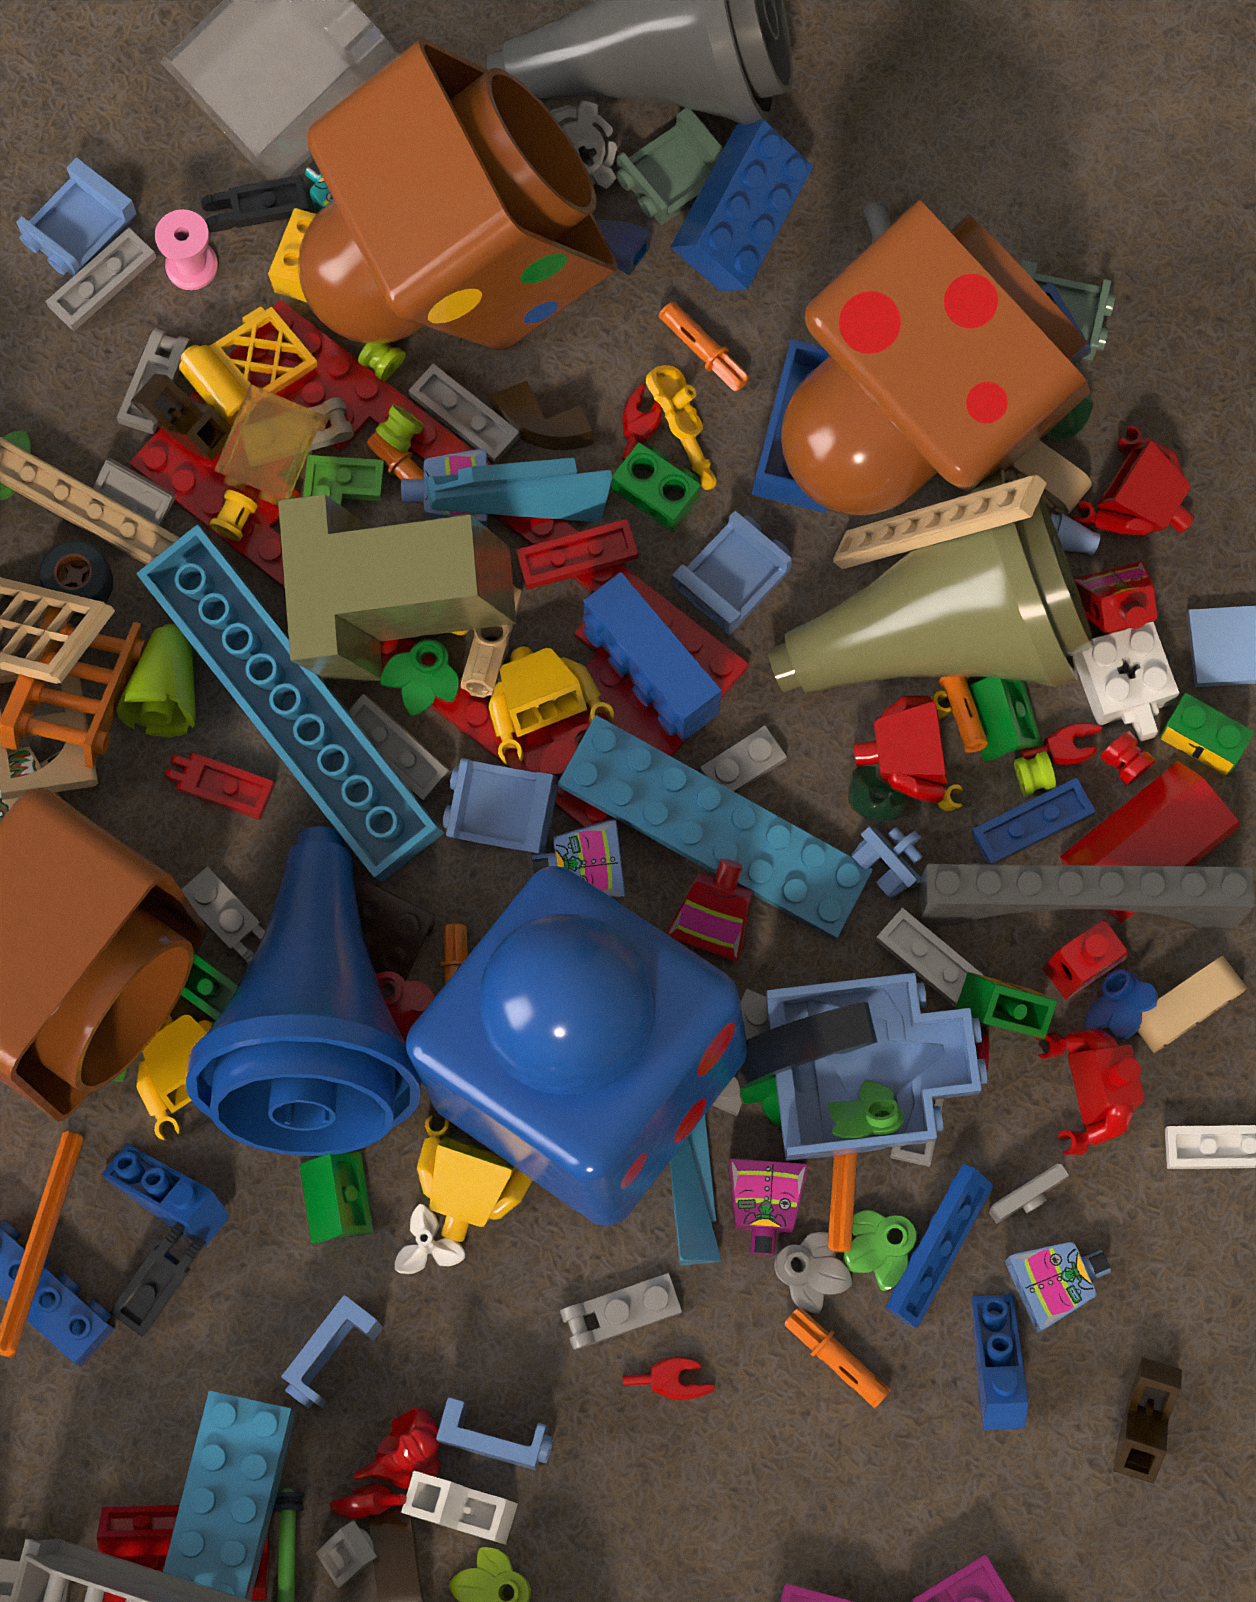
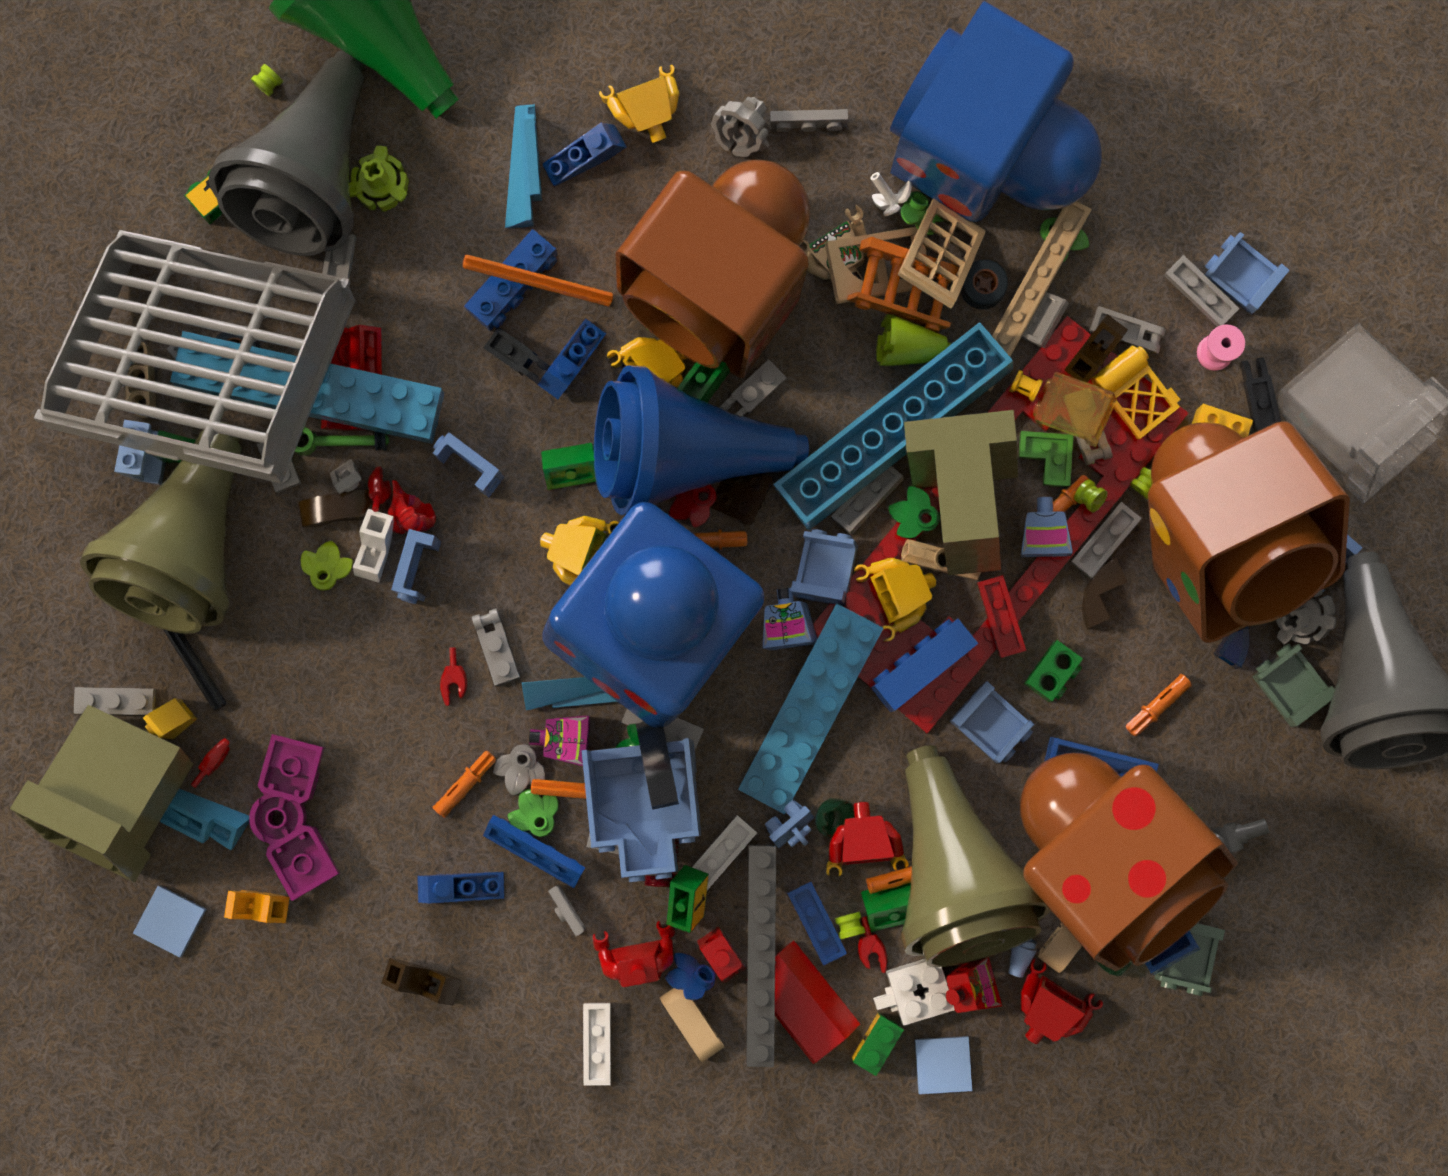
camera: 90 degrees right, 10 degrees up
(221, 784) = (841, 385): red hinge -> none
(424, 1227) = (532, 515): white plant -> none
(523, 489) = (1043, 578): dark azure wedge -> none
(638, 425) = (1099, 659): red hand -> none
(674, 396) = (1120, 684): yellow piece -> none
(715, 912) = (751, 708): red torso -> none
(742, 206) = (1261, 731): blue brick -> none
(745, 761) = (858, 729): light grey plate -> none
(872, 1114) = (610, 799): bright green plate -> none
(941, 522) = (1008, 862): tan tile -> none
(1055, 1281) = (510, 926): torso -> none
(1128, 758) = (861, 989): red wheel -> none

